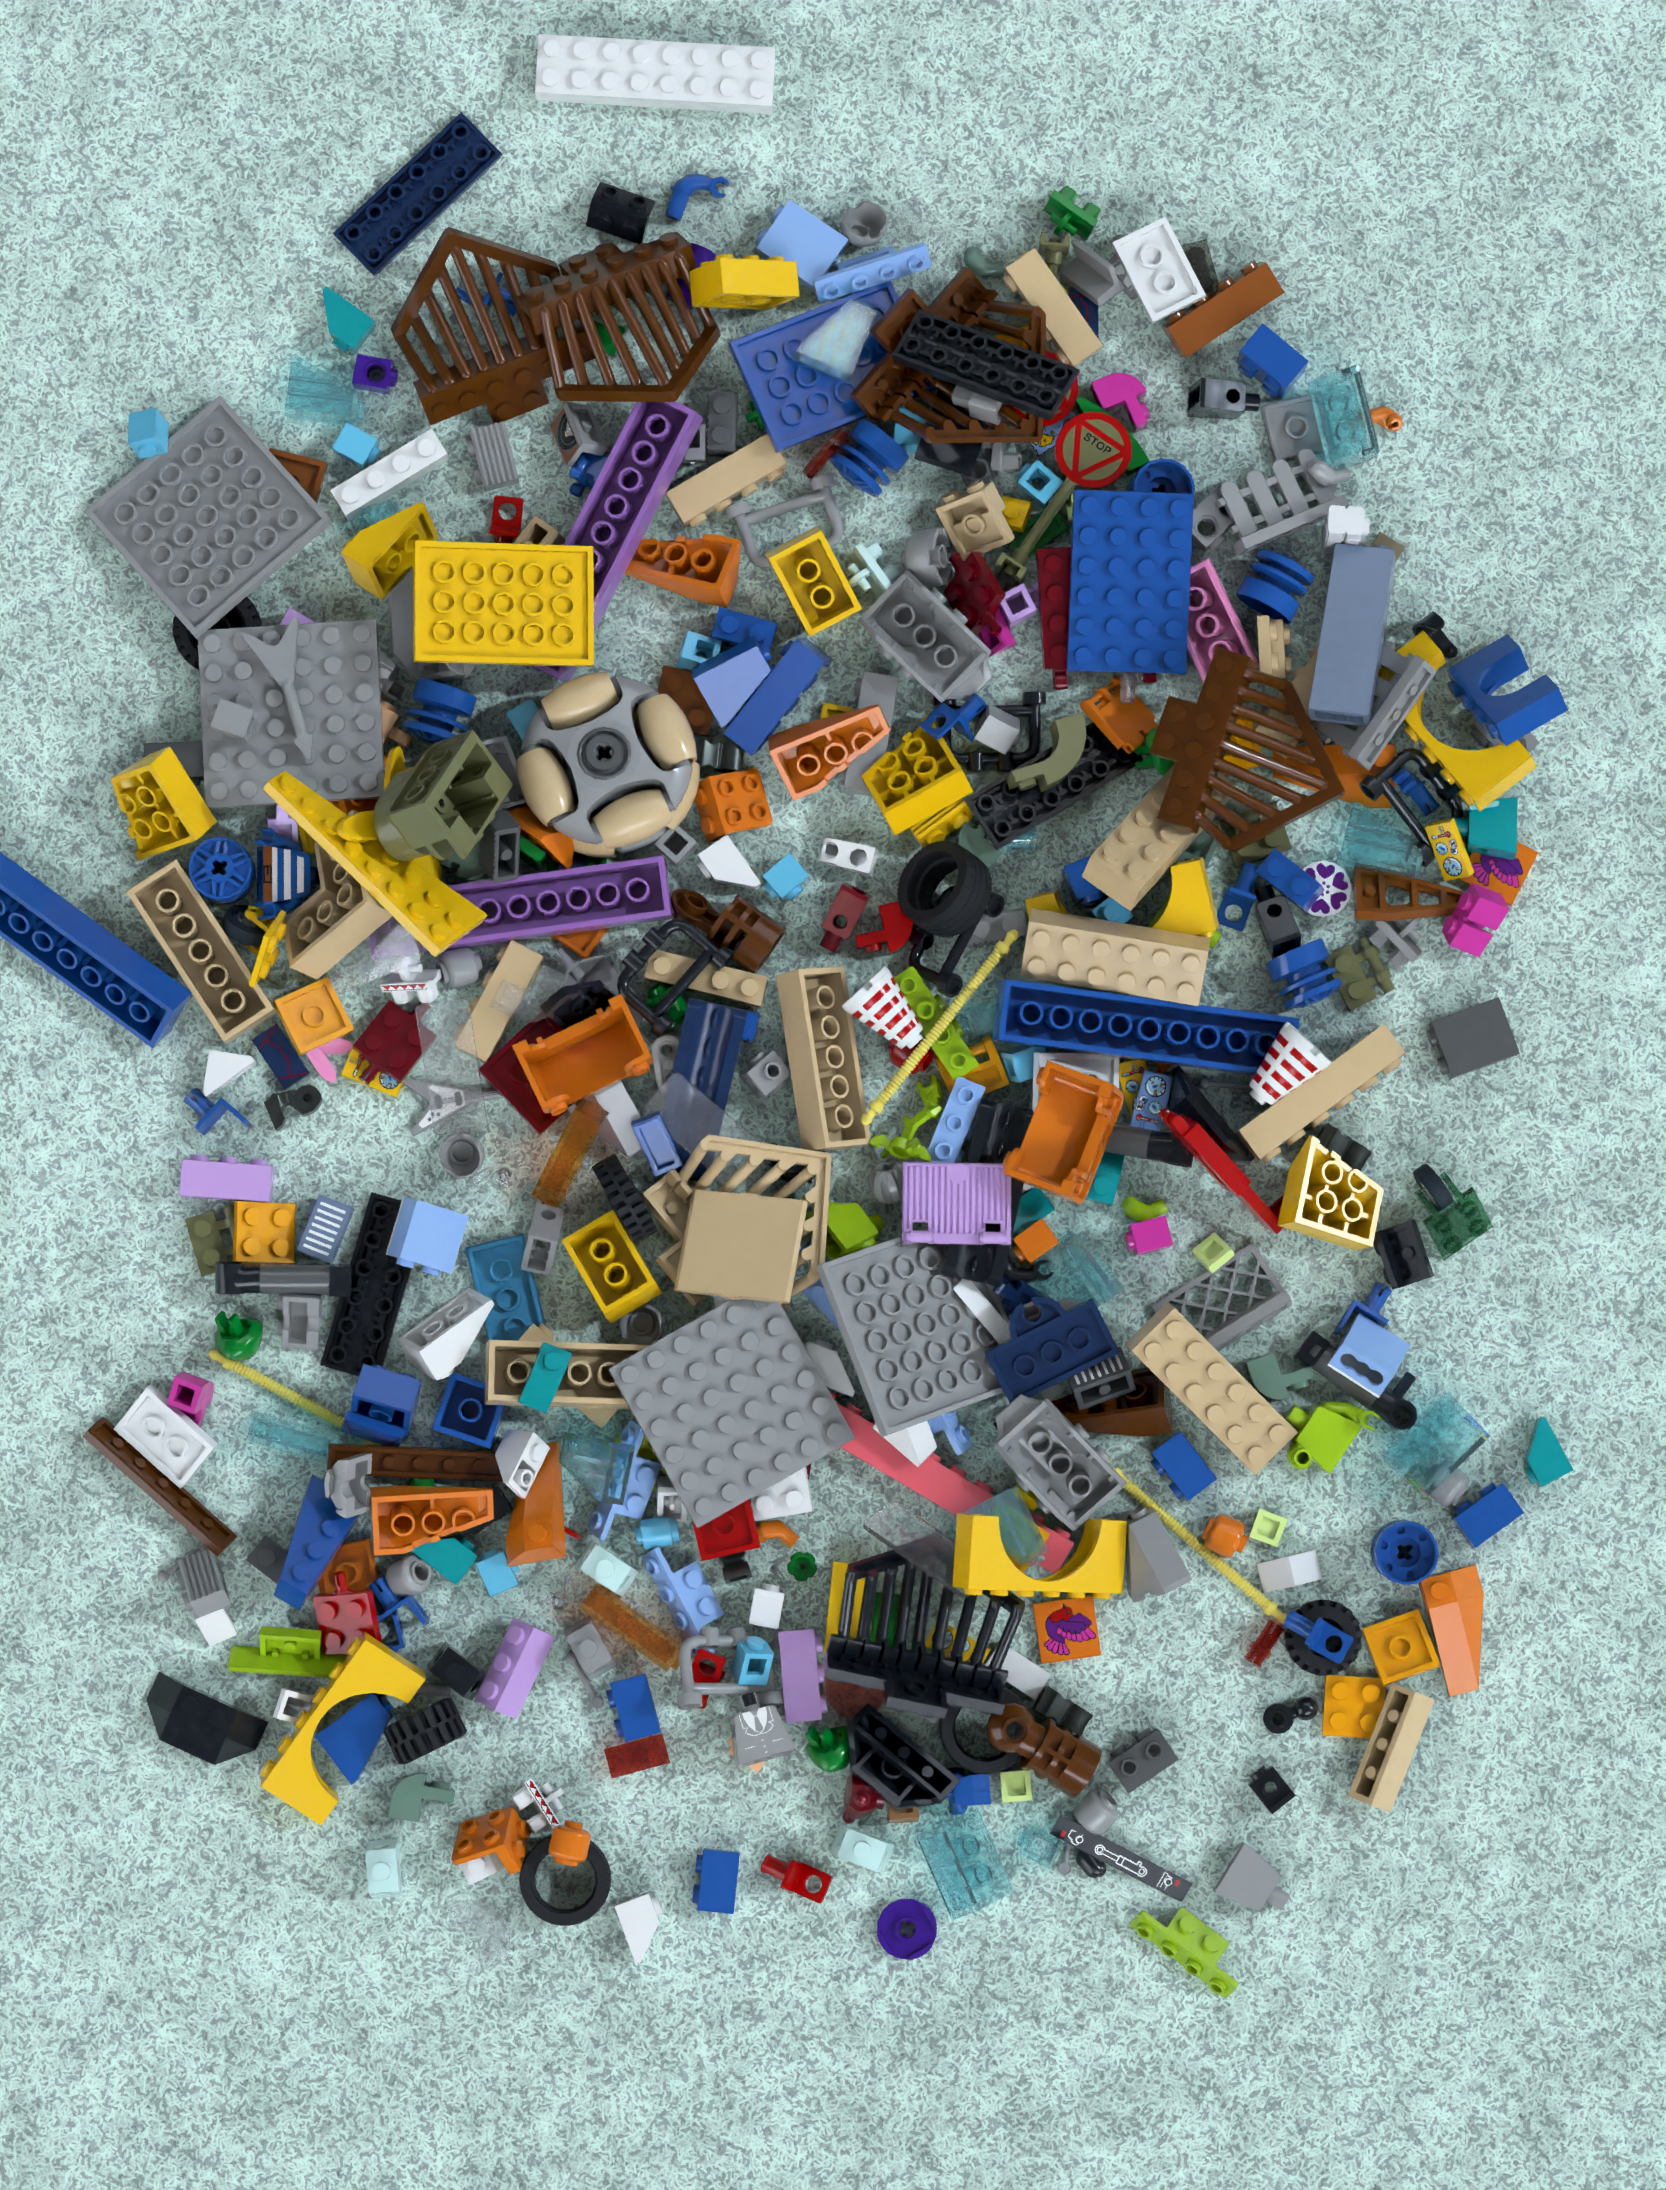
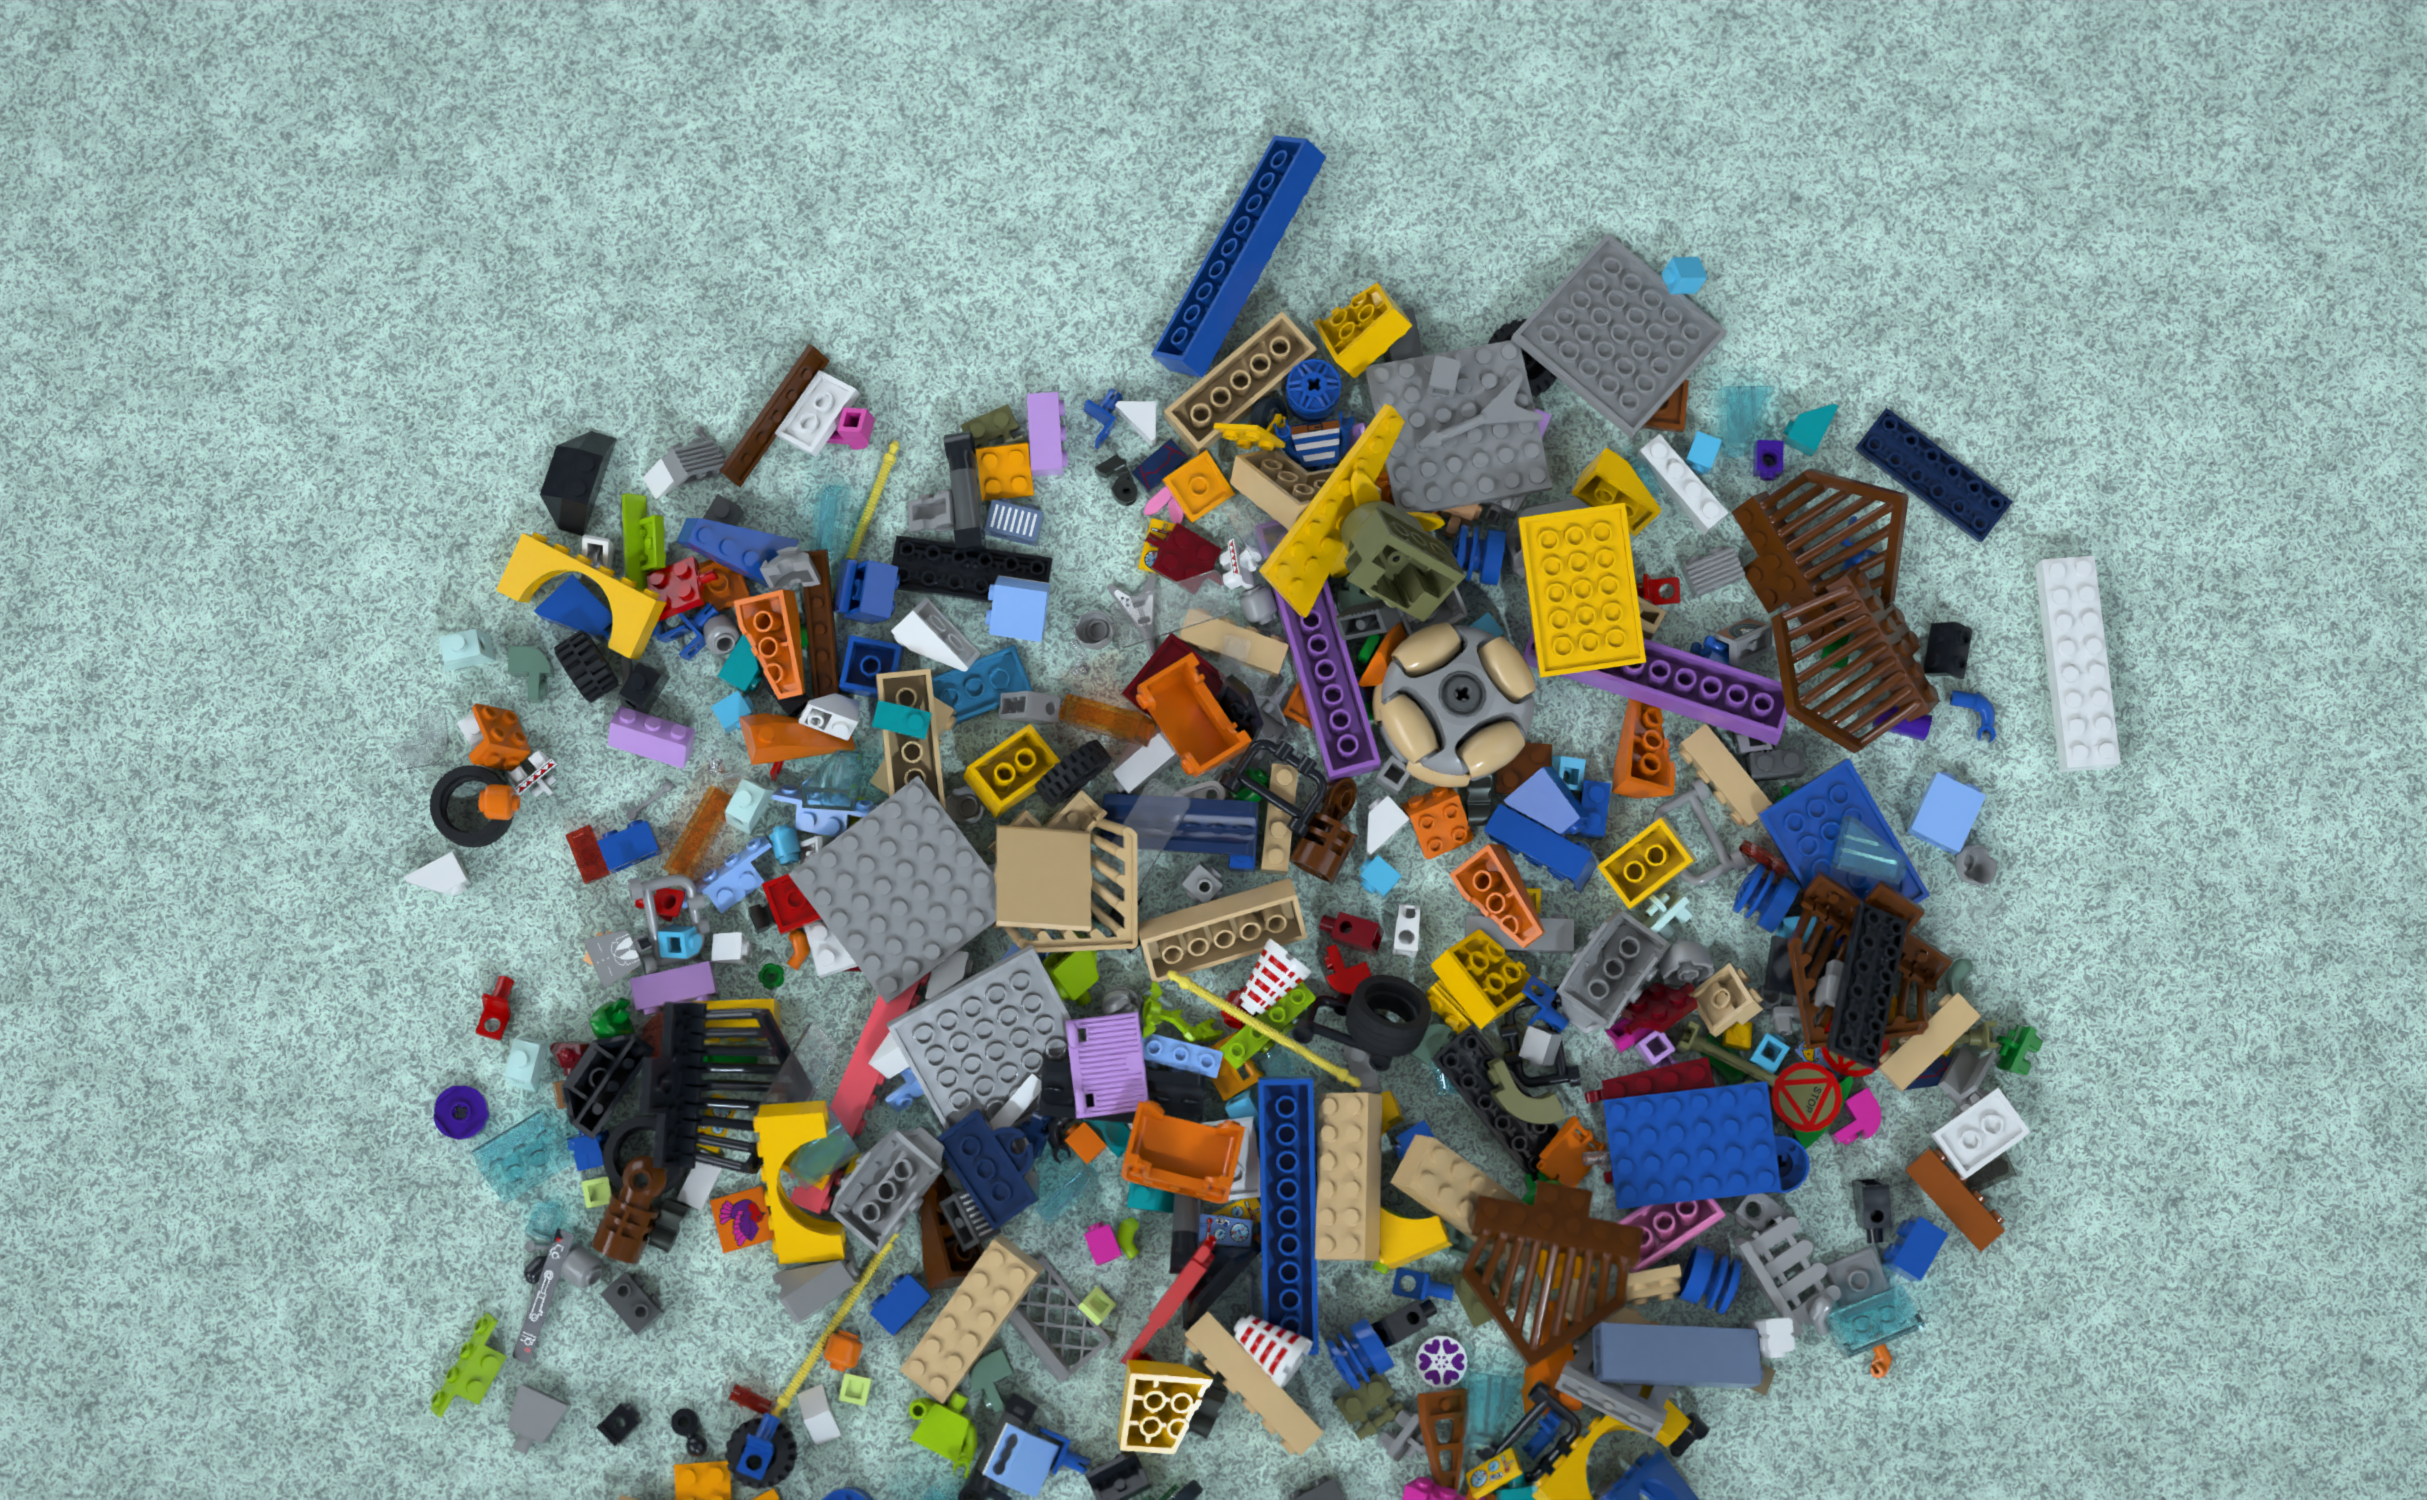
camera: 80 degrees right, 5 degrees down
(238, 1337) = (910, 462): green piece -> none
(589, 1648) = (676, 799): light grey torso -> none
(657, 1143) = (1126, 794): tile -> none
(717, 1880) = (485, 939): blue brick -> none
(744, 282) = (1904, 764): yellow brick -> none
(871, 270) = (1934, 876): light blue bracket -> none
(1112, 911) = (1389, 1166): medium azure brick -> none
(1290, 880) = (1443, 1329): blue brick -> none

